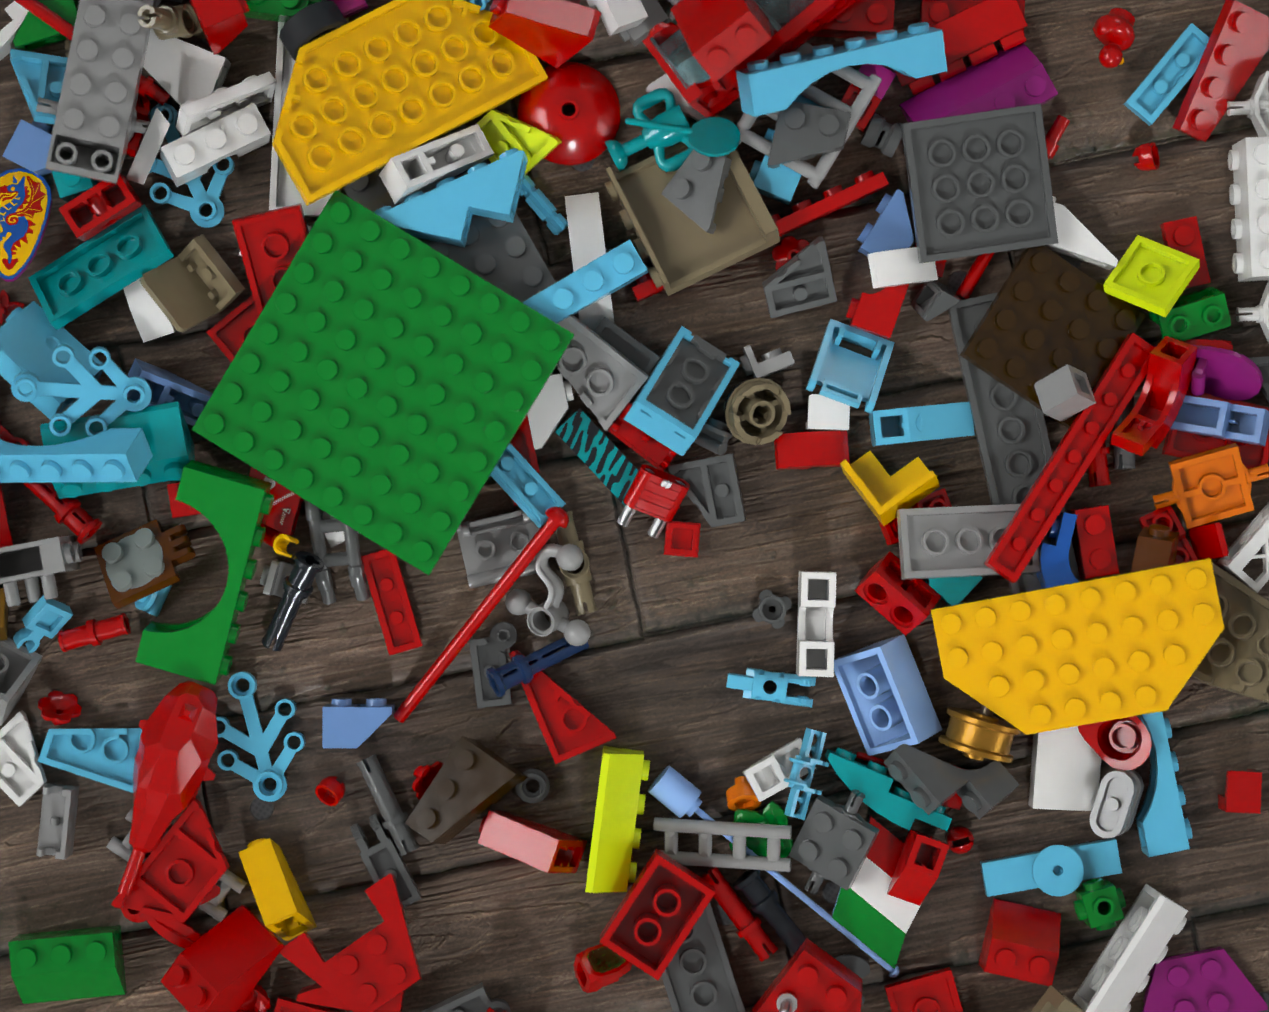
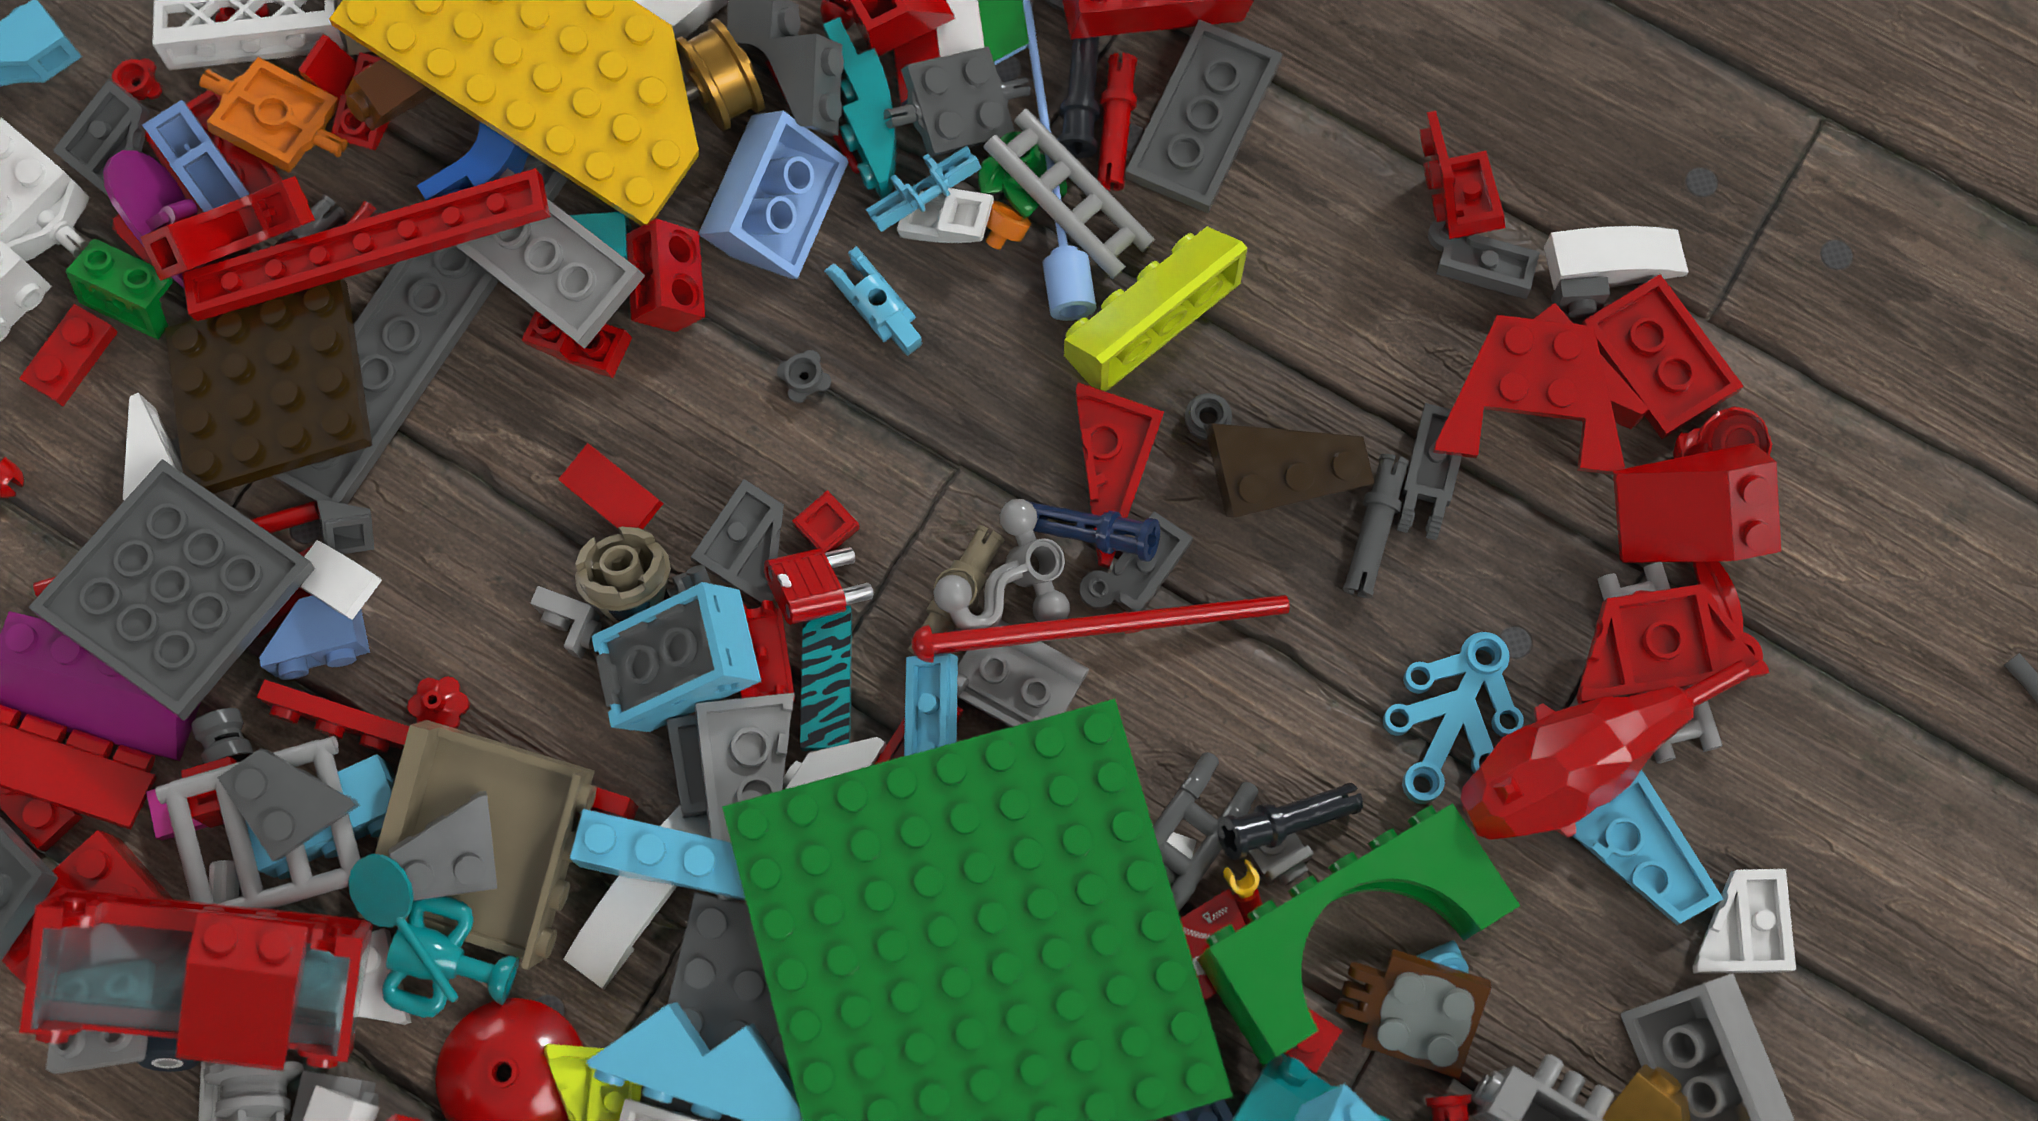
camera: 130 degrees left, 15 degrees down
(42, 620) = (1588, 1049): medium azure plate -> none
(58, 820) = (1754, 819): light grey hinge -> none
(59, 707) = (1648, 936): red plant -> none
(68, 964) = (1867, 662): green slope -> none
(94, 632) = (1539, 984): red pin -> none
(276, 889) = (1571, 543): yellow slope -> none
(330, 791) = (1424, 592): red hinge -> none
(351, 724) = (1338, 636): medium blue slope -> none
(391, 602) = (1183, 726): red plate -> none
(424, 777) = (1310, 513): red plant -> none
(531, 842) = (1261, 360): slope -> none
(542, 206) = (635, 991): medium azure axle -> none
(599, 967) = (1298, 185): red rock -> none
(657, 914) = (1195, 174): red brick -> none
(776, 84) = (256, 875): medium azure arch -> none
(801, 282) = (451, 665): dark grey wing -> none
(815, 623) = (797, 298): white arch -> none
(827, 414) = (555, 508): white panel -> none
(847, 374) = (499, 529): medium azure container -> none
(877, 311) = (410, 567): red arch -> none
(889, 493) = (580, 378): yellow panel -> none
(921, 423) = (483, 421): medium azure slope -> none
(1064, 393) = (308, 310): light grey panel -> none
(1094, 542) = (431, 148): red brick -> none
(1151, 275) = (115, 353): neon yellow plate -> none

